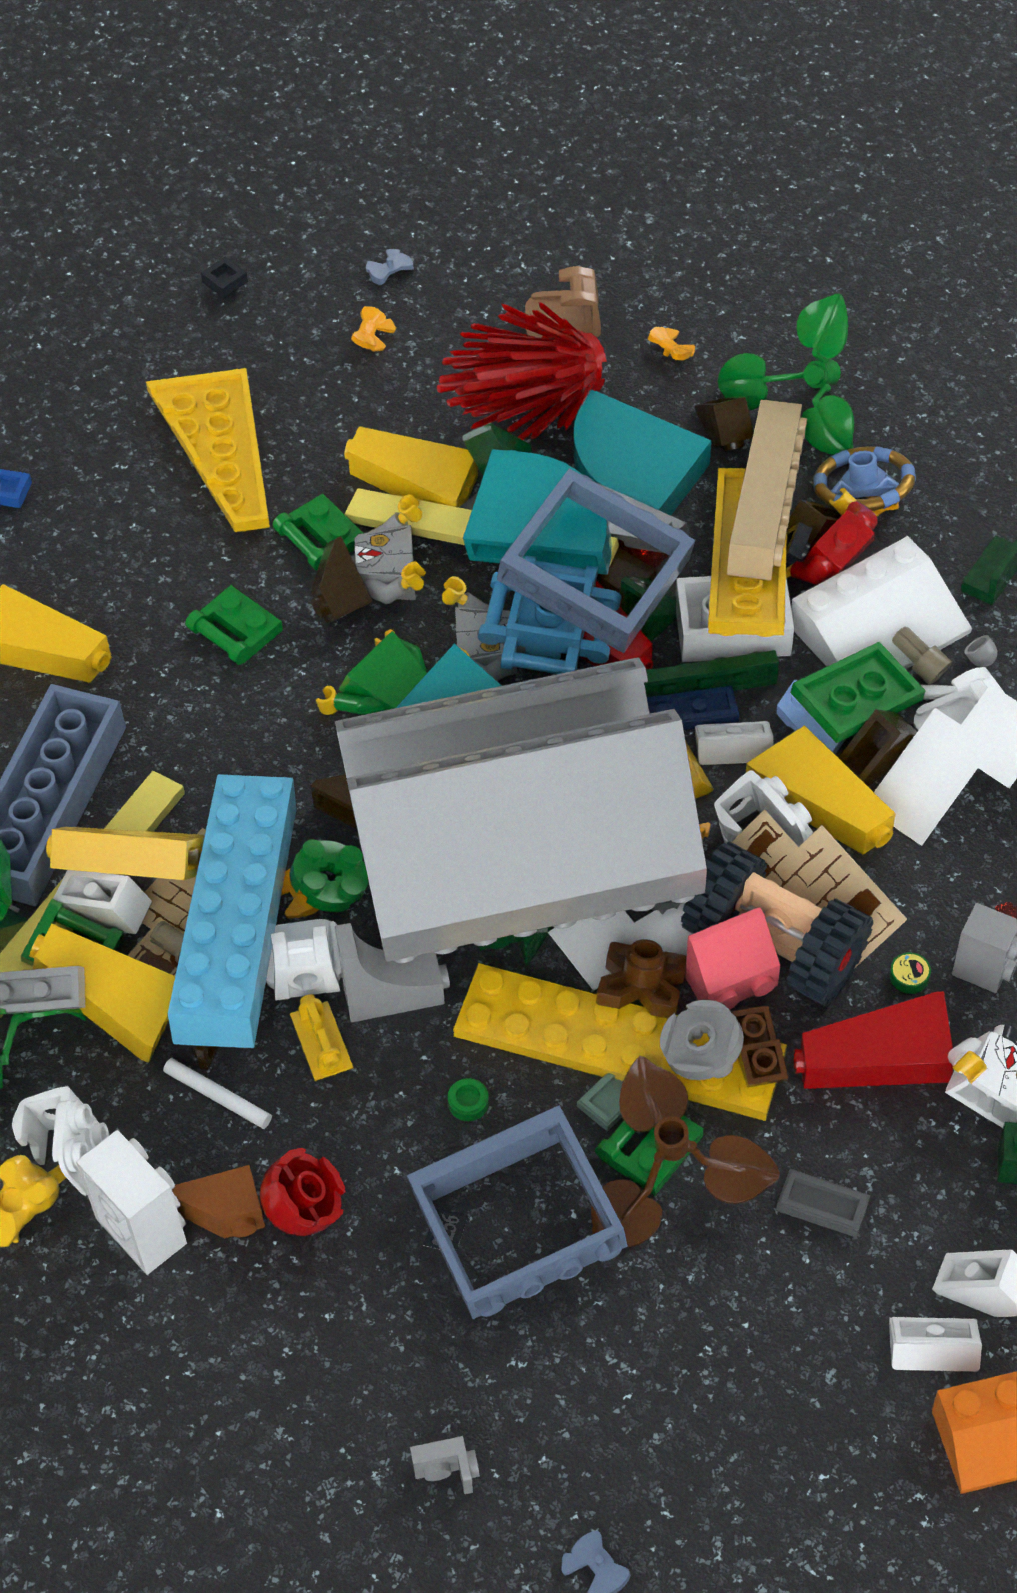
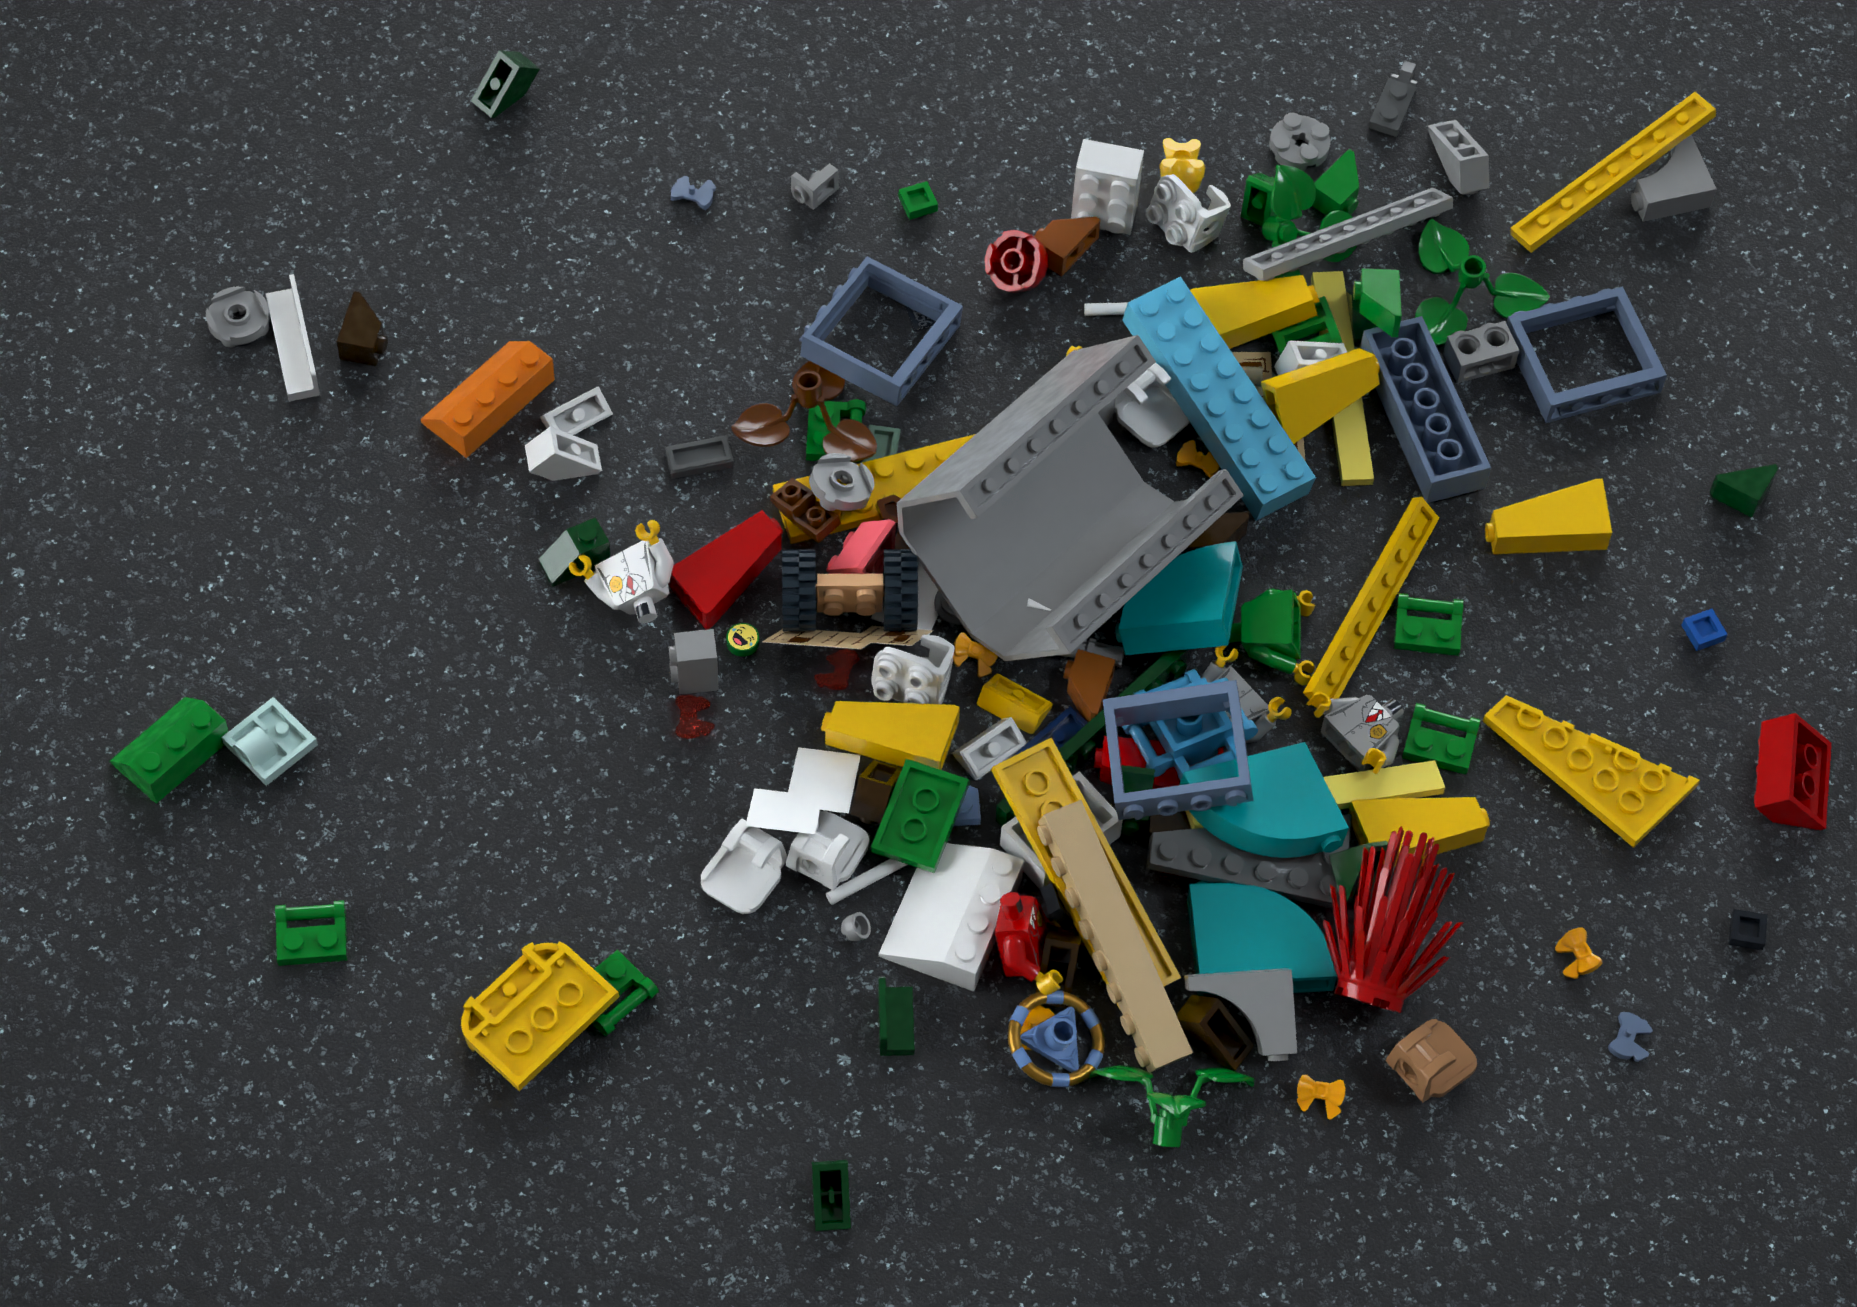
camera: 140 degrees right, 5 degrees up
(69, 352) = (1793, 773): none -> red slope
(257, 667) = (1373, 600): none -> yellow plate
(334, 857) = (1183, 454): green plate -> none
(337, 583) = (1372, 676): dark brown slope -> none
(338, 1368) = (918, 200): none -> green plate
(468, 1099) = (971, 393): green tile -> none
(675, 399) = (1263, 999): none -> light grey arch
(928, 662) = (888, 888): dark tan piece -> none

